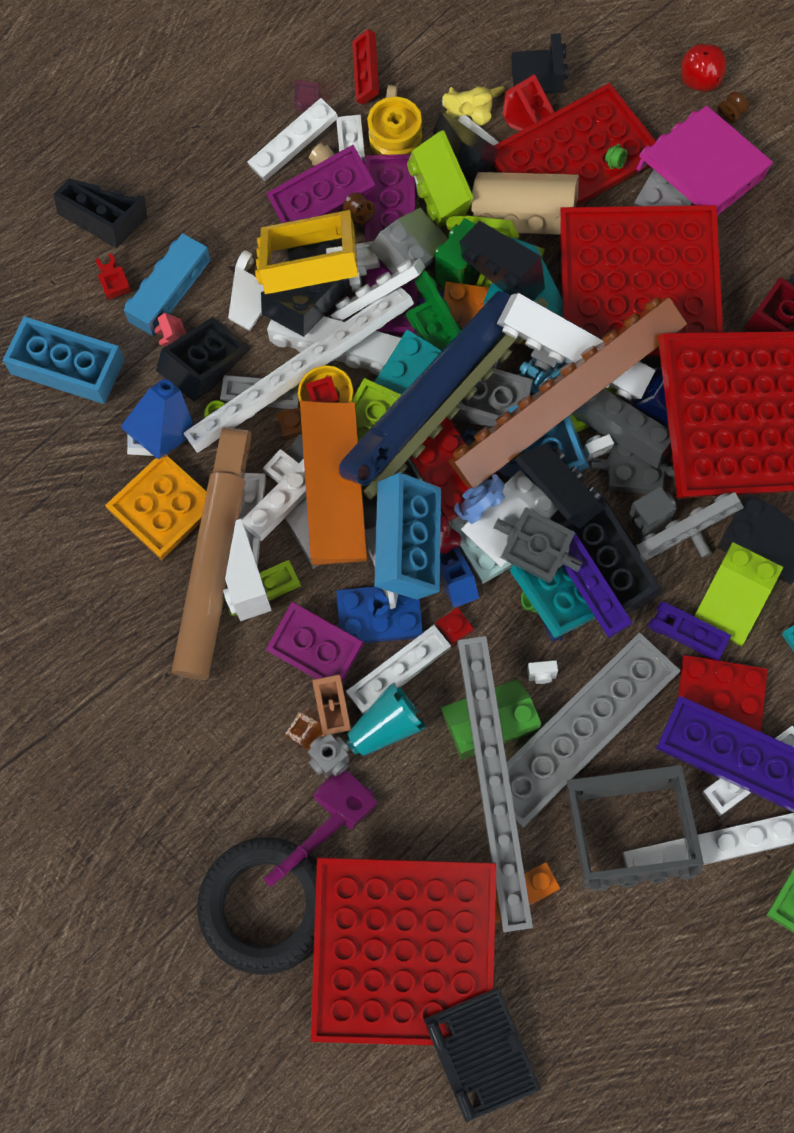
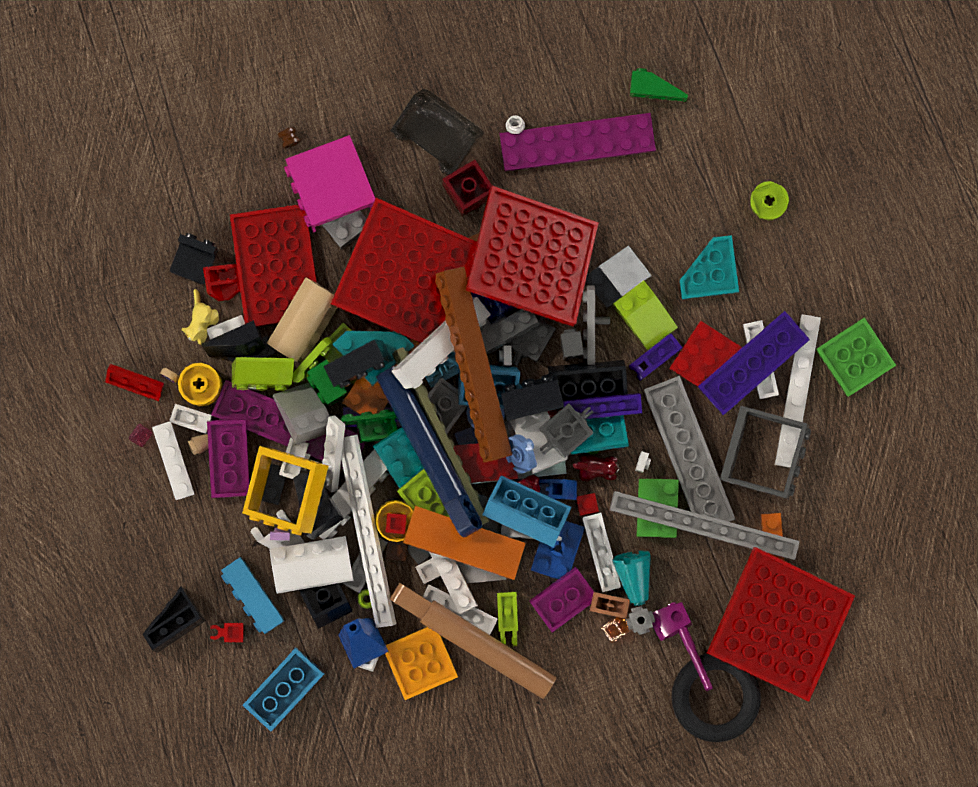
camera: 70 degrees left, 15 degrees up
(170, 327) = (290, 605): coral tile -> none
(231, 327) = (311, 564): none -> white slope
(245, 587) = (509, 628): white slope -> none
(252, 281) = (279, 534): none -> lavender plate
(361, 208) = (257, 438): reddish brown wheel -> none
(482, 1054) = (857, 602): black window -> none
(506, 610) = (594, 467): none -> dark red animal
(616, 156) = (296, 240): bright green plate -> none
(703, 67) = (252, 149): red piece -> none

